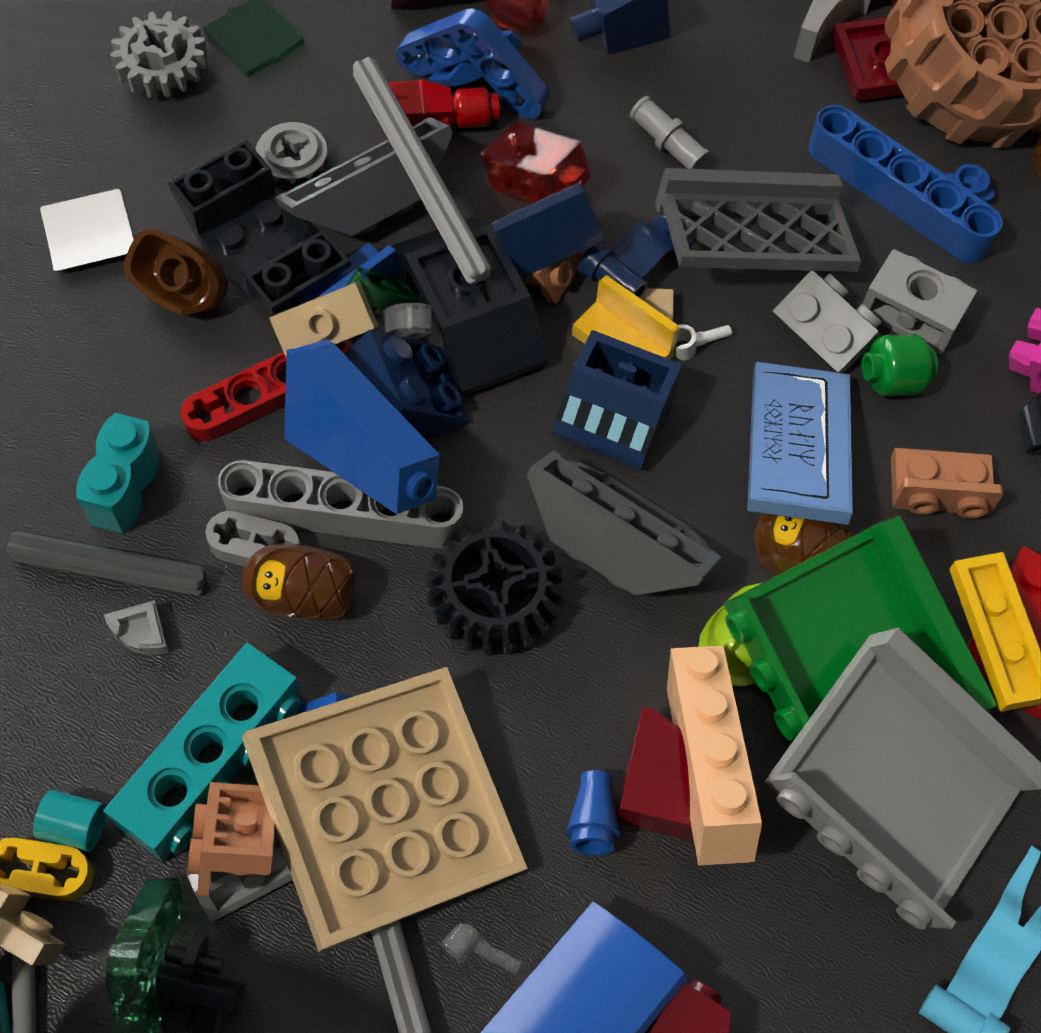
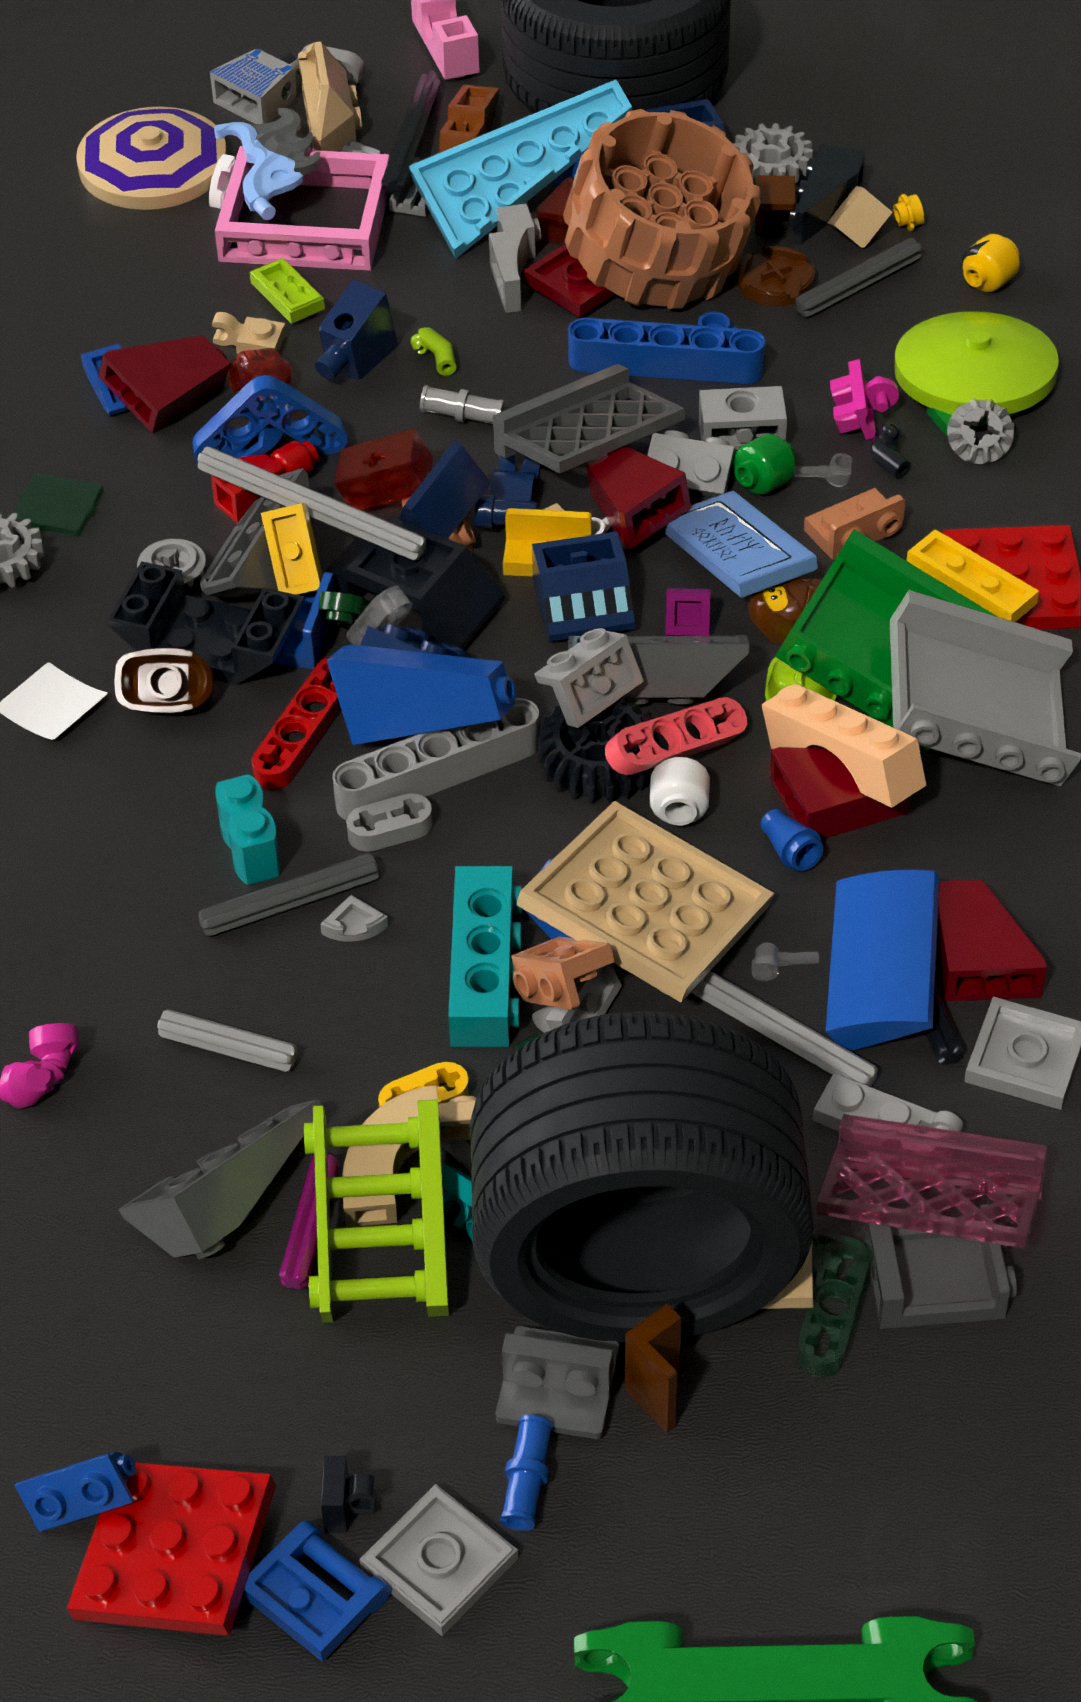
camera: 30 degrees left, 15 degrees down
(69, 820) = (420, 1048): teal beam -> none
(299, 581) = (455, 820): reddish brown piece -> none
(329, 317) = (332, 628): tan plate -> none
(376, 205) = (292, 549): none -> yellow tile
(522, 515) = (591, 675): none -> light grey bracket
(528, 689) = (679, 790): none -> white head
(565, 634) = (675, 732): none -> coral beam
(697, 486) = (687, 612): none -> magenta tile
(701, 62) = (443, 351): none -> lime arm
(746, 328) = (637, 493): none -> dark red slope
(964, 415) = (836, 473): none -> clear hand

